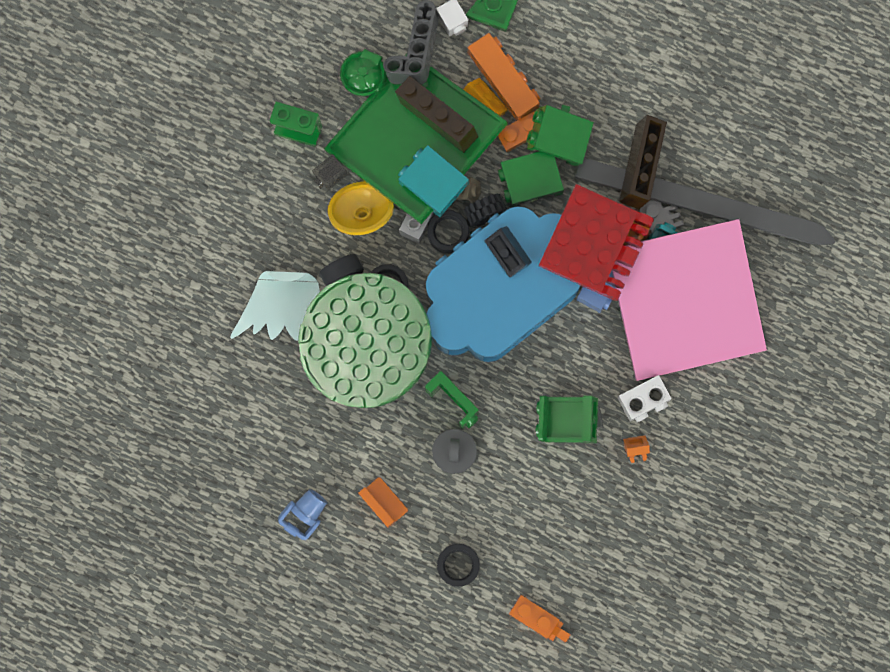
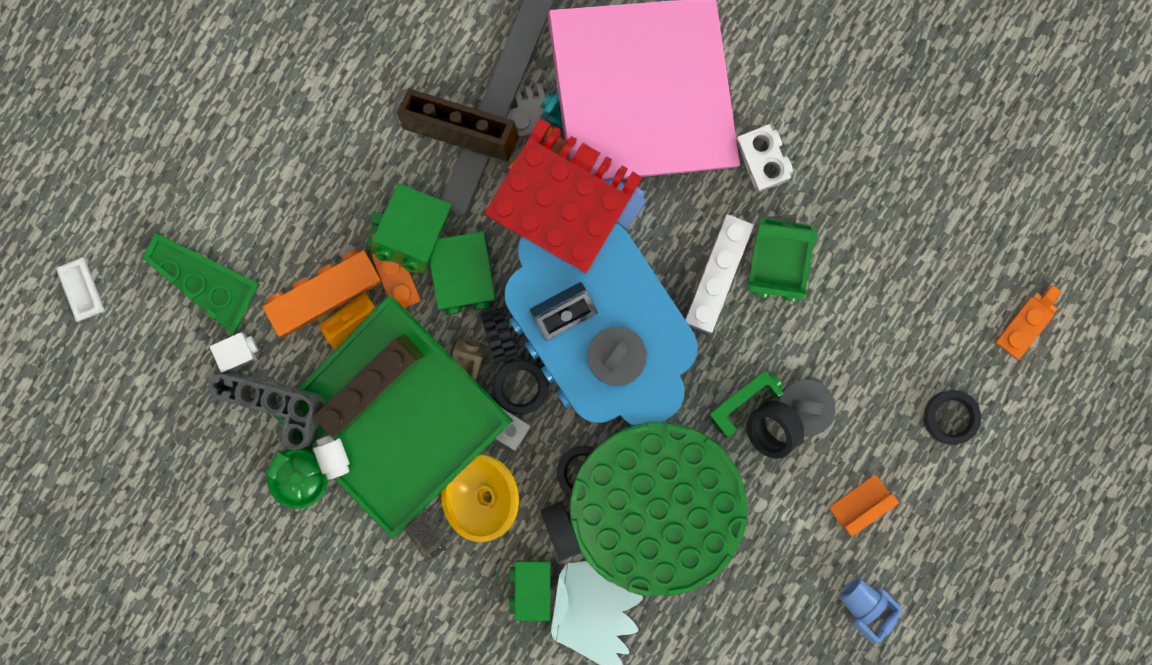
camera: 90 degrees left, 5 degrees up
(294, 254) = (532, 590): none -> green brick
(296, 124) = (359, 573): green panel -> none
(381, 95) = (331, 457): none -> white brick
(427, 419) = (787, 419): none -> black tyre
(433, 180) = (457, 399): teal panel -> none
(477, 295) = (617, 356): none -> dark grey tile
(550, 372) = (718, 274): none -> white brick
(636, 446) = (823, 175): orange tile -> none

